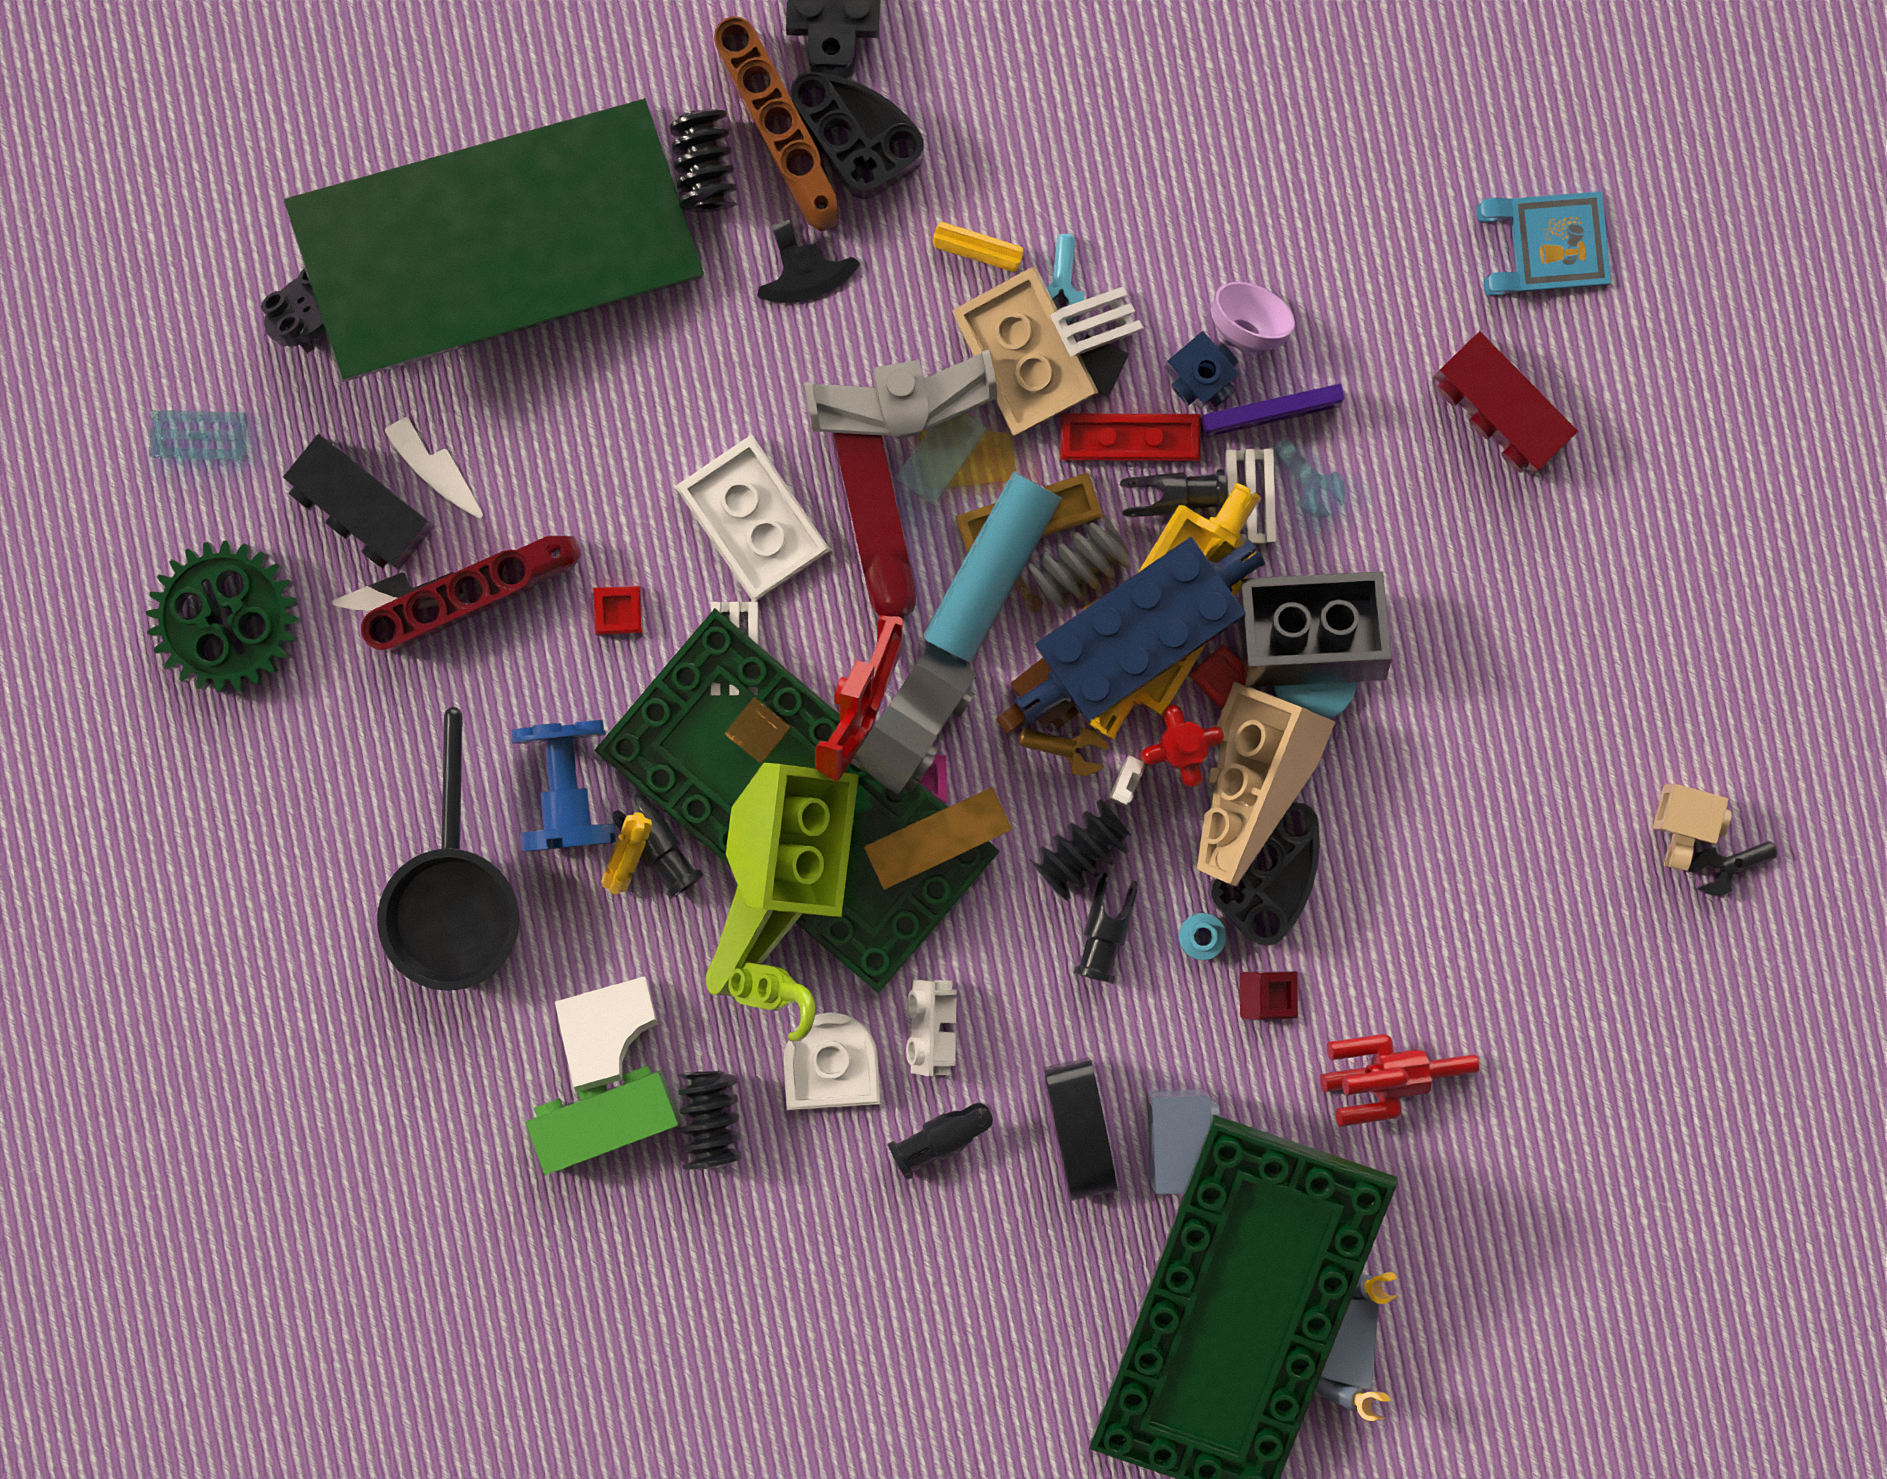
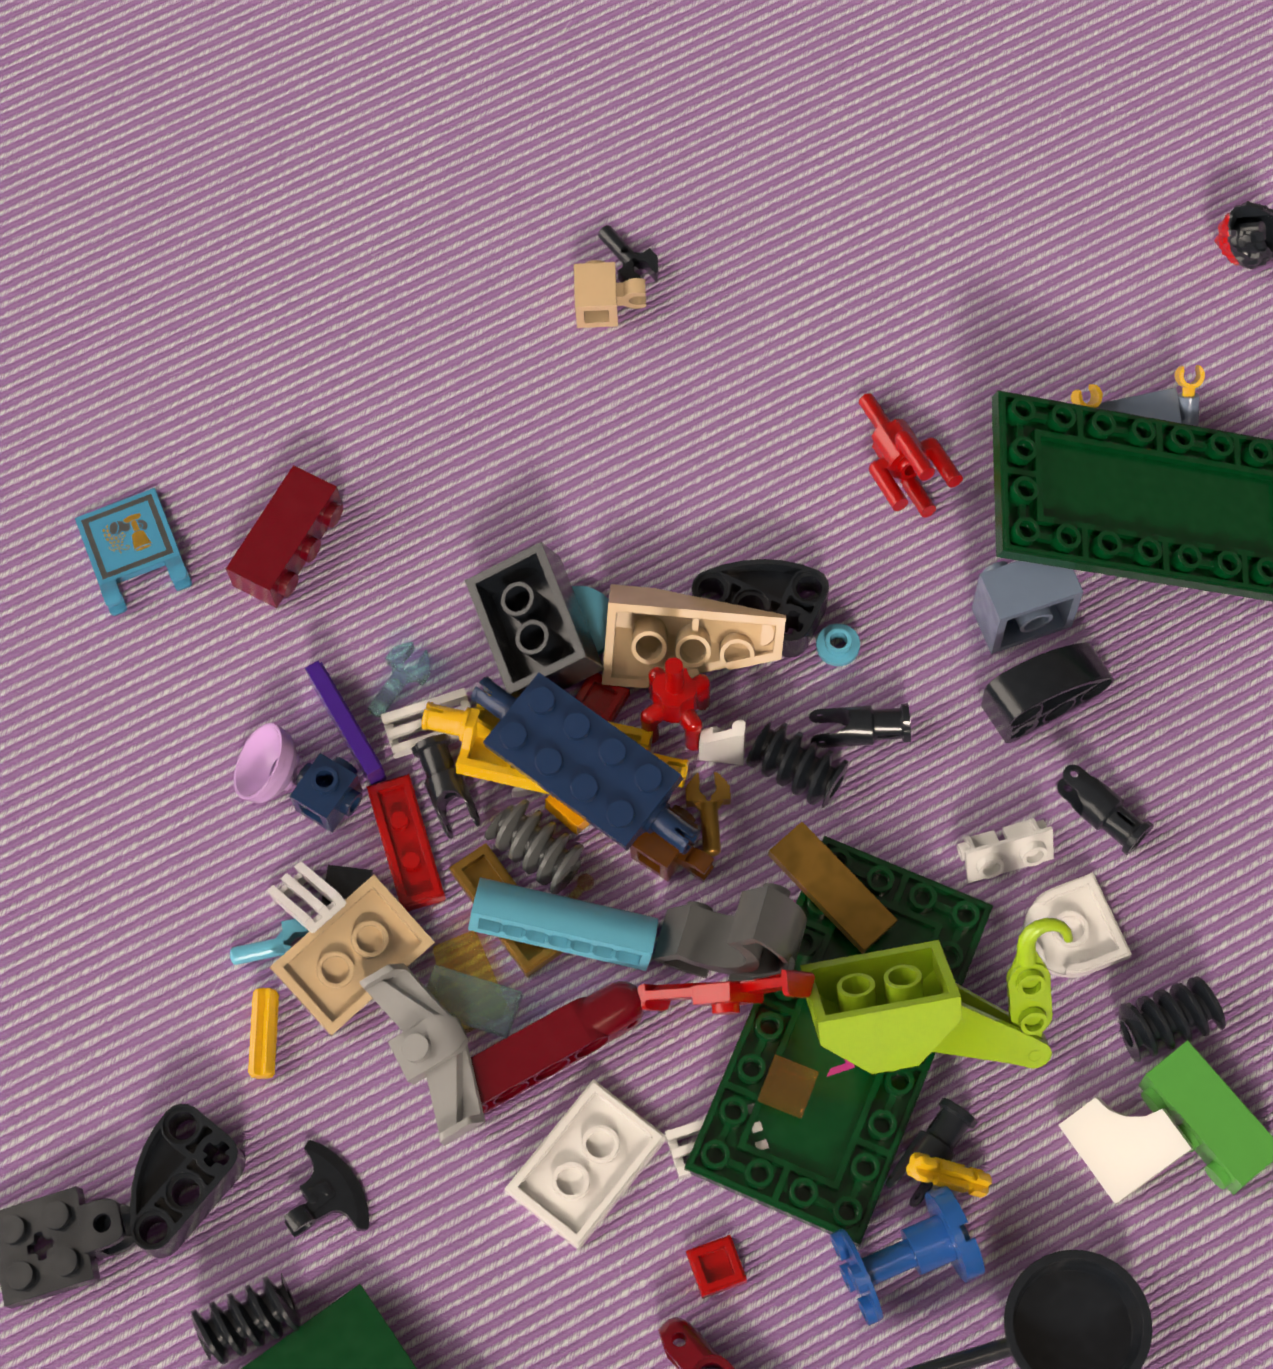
camera: 105 degrees left, 20 degrees down
(808, 189) = (167, 1265): dark orange piece -> none
(1269, 995) = (869, 578): dark red slope -> none

